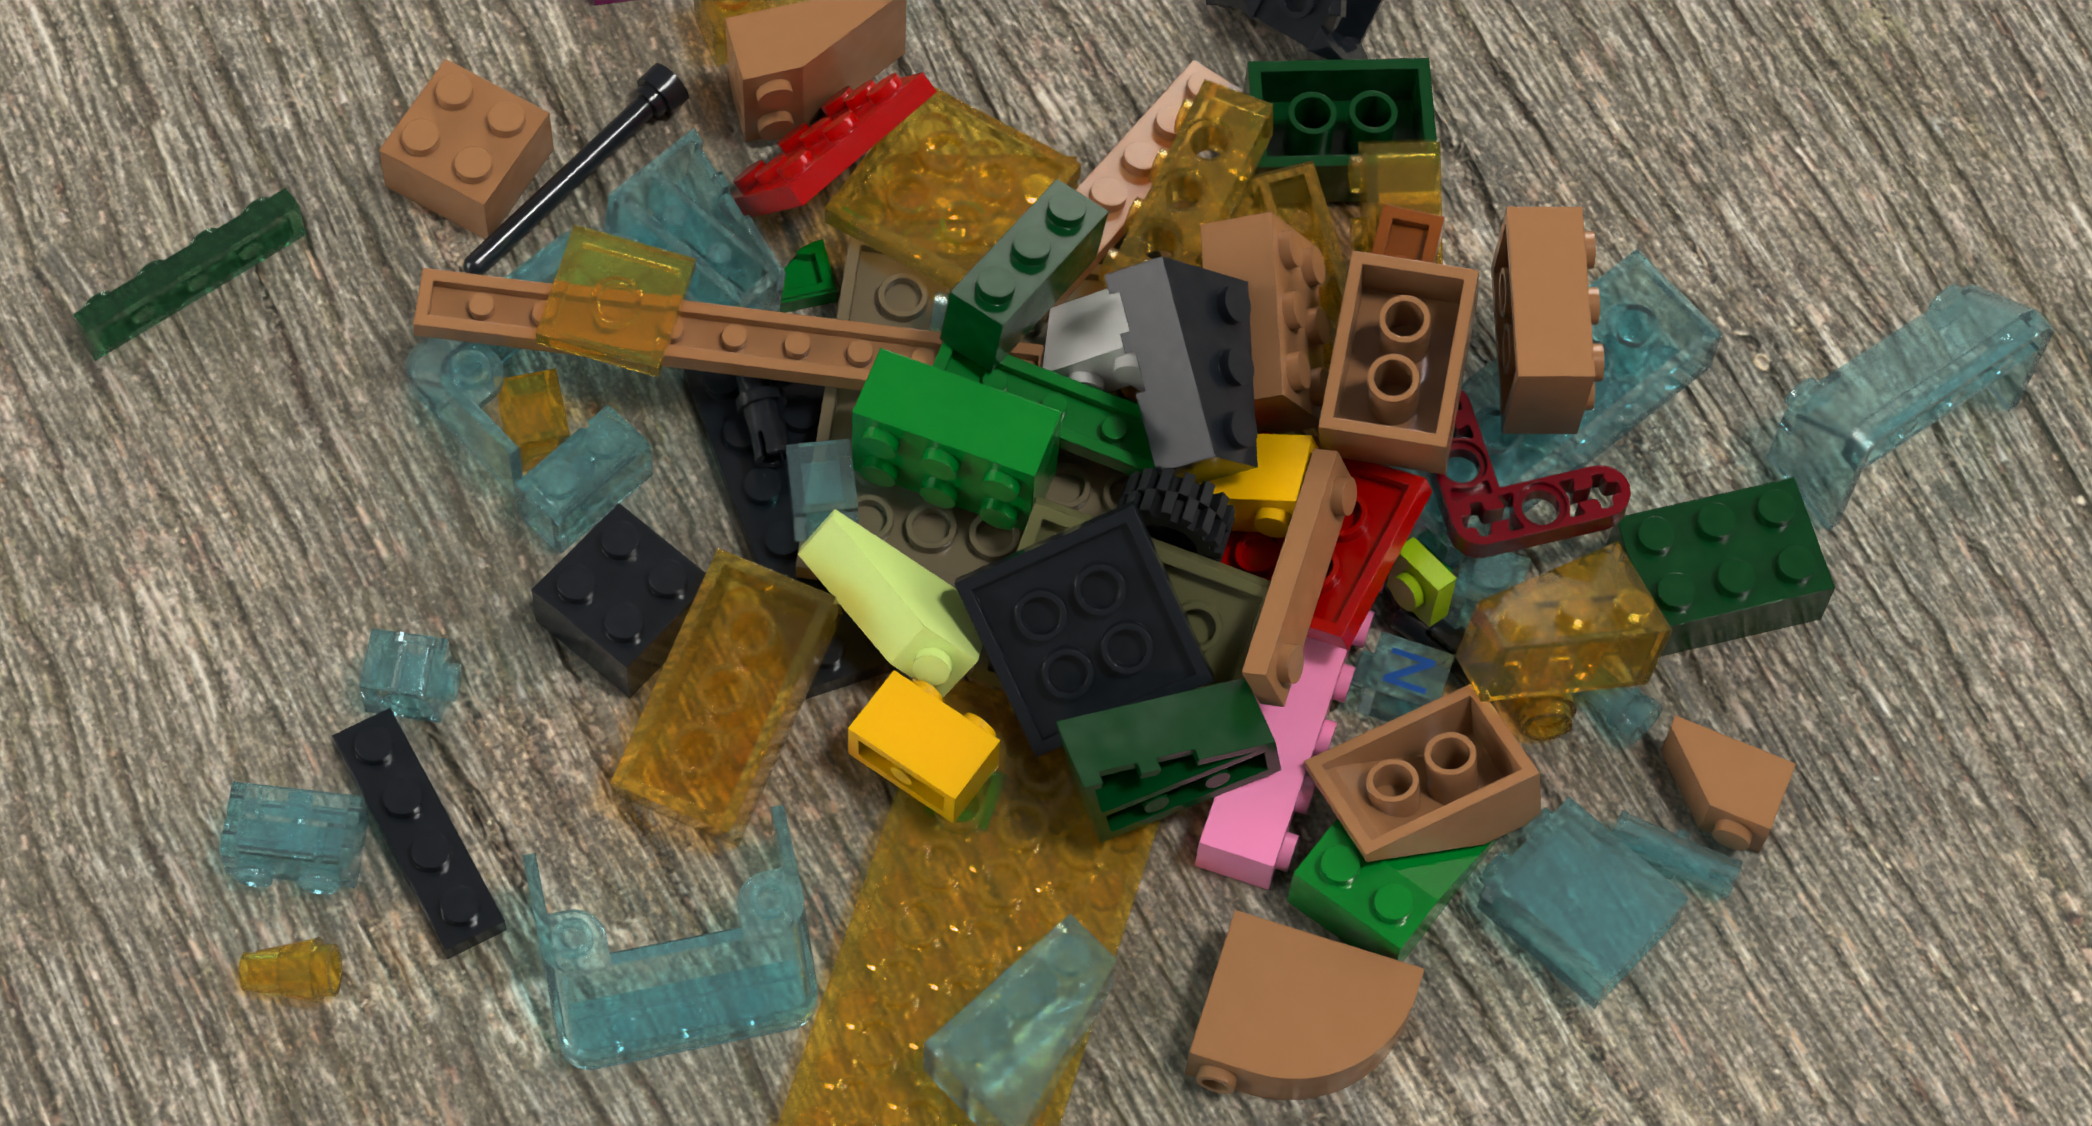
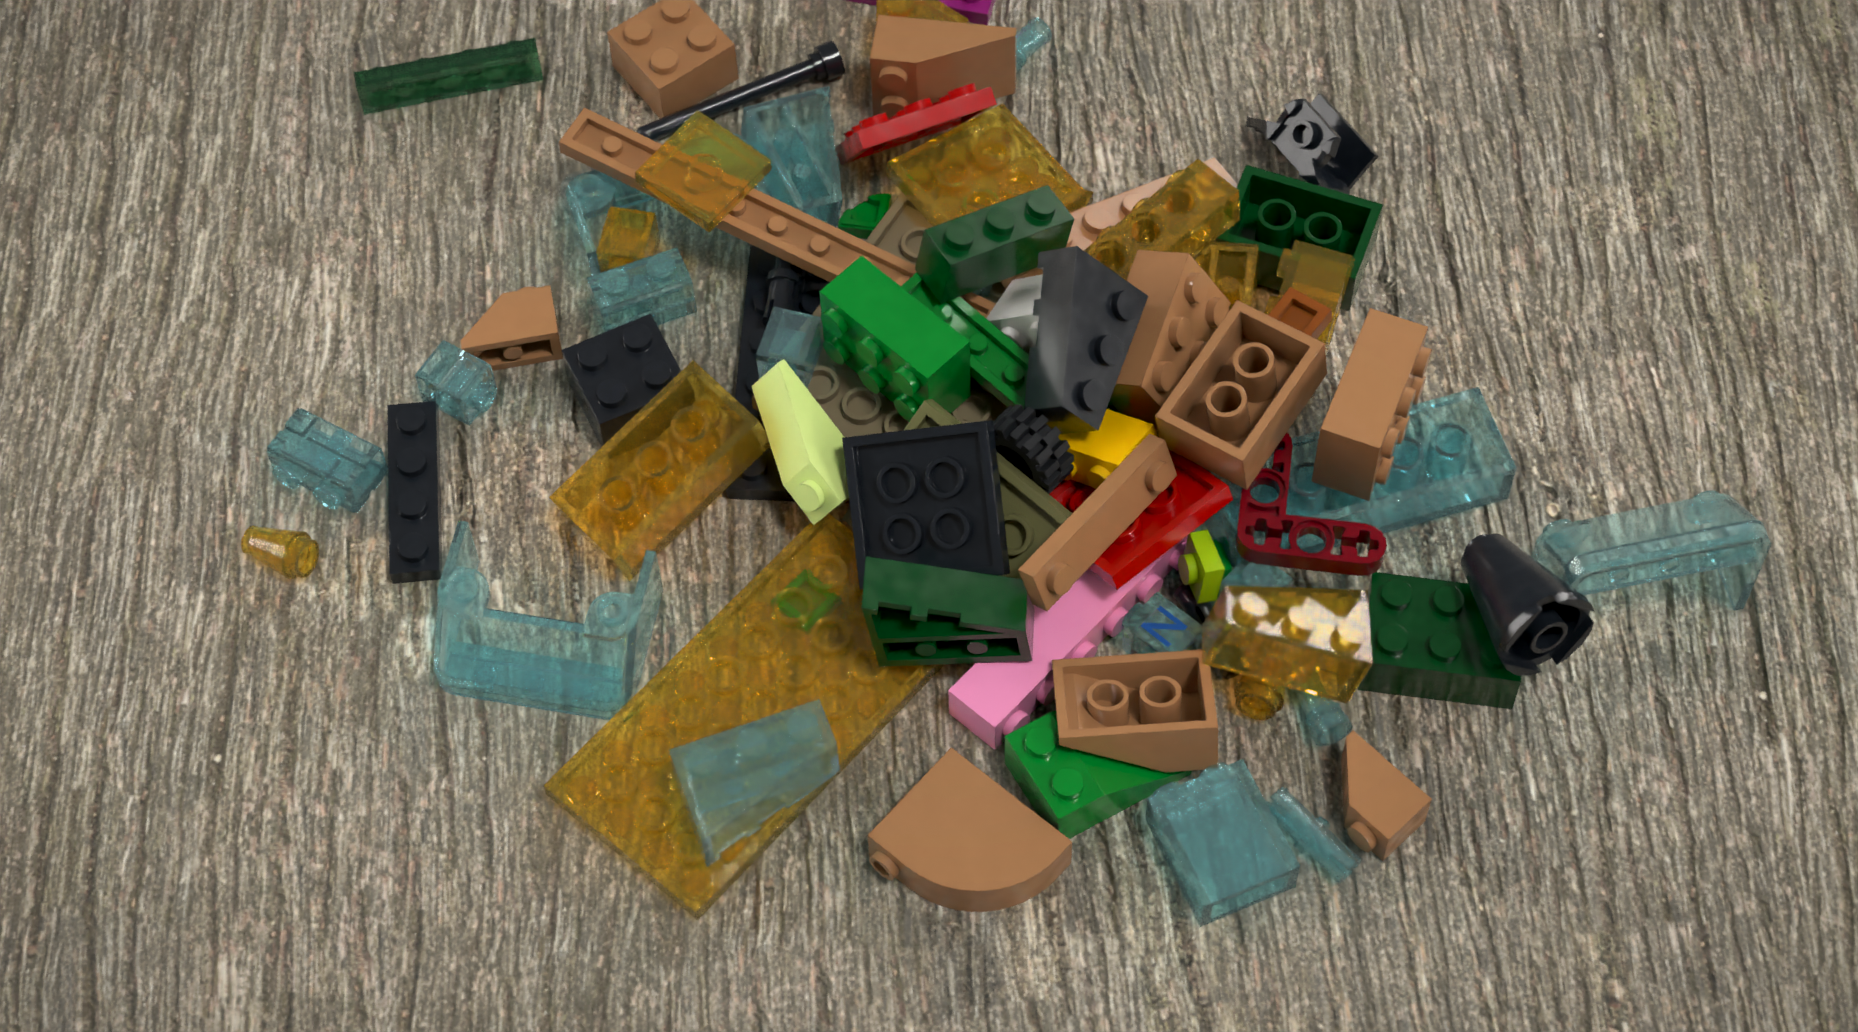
camera: 30 degrees right, 5 degrees down
(452, 578) = (517, 330): none -> medium nougat slope
(924, 745) = (782, 551): yellow brick -> none
(1810, 497) = (1524, 605): none -> black cone

